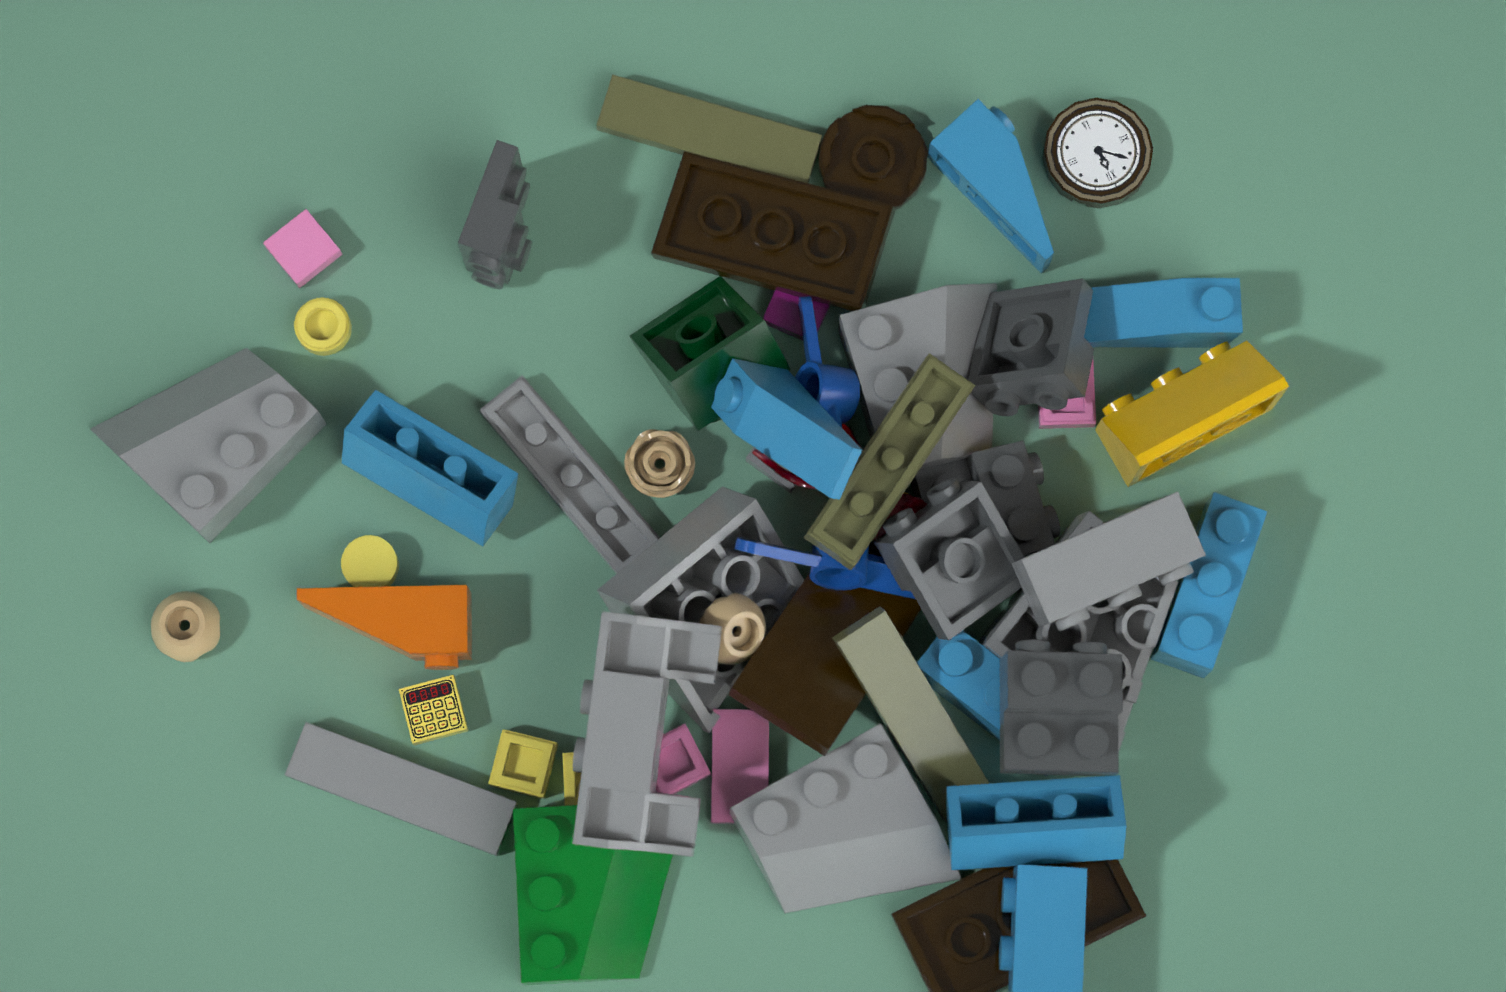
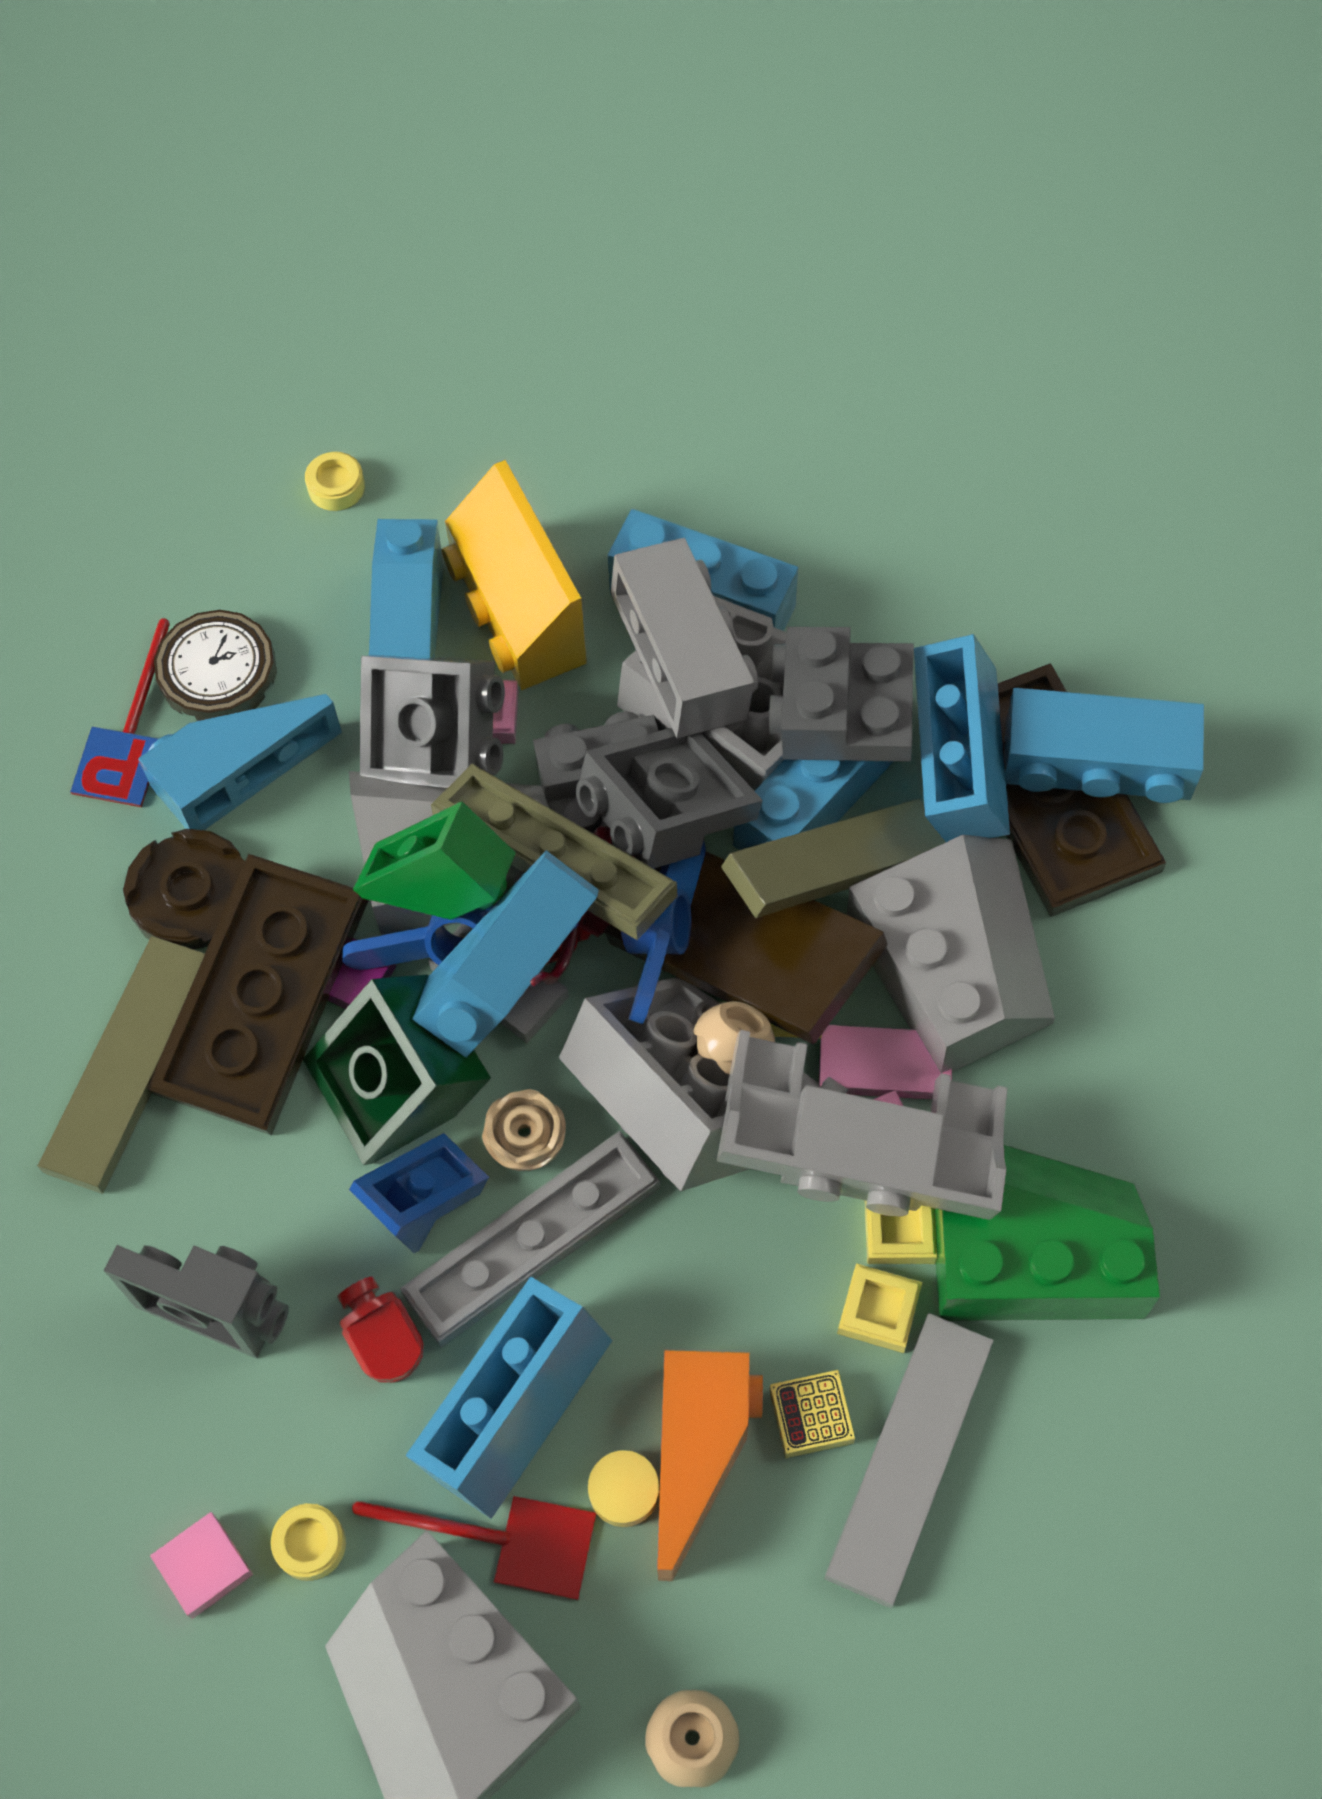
camera: 85 degrees left, 15 degrees down
(327, 504) = (540, 1549): none -> red piece
(483, 363) = (380, 1332): none -> red arm
(599, 380) = (420, 1188): none -> blue slope
(859, 363) = (439, 865): none -> green slope
(999, 81) = (110, 757): none -> piece
(1309, 236) = (334, 481): none -> light yellow tile

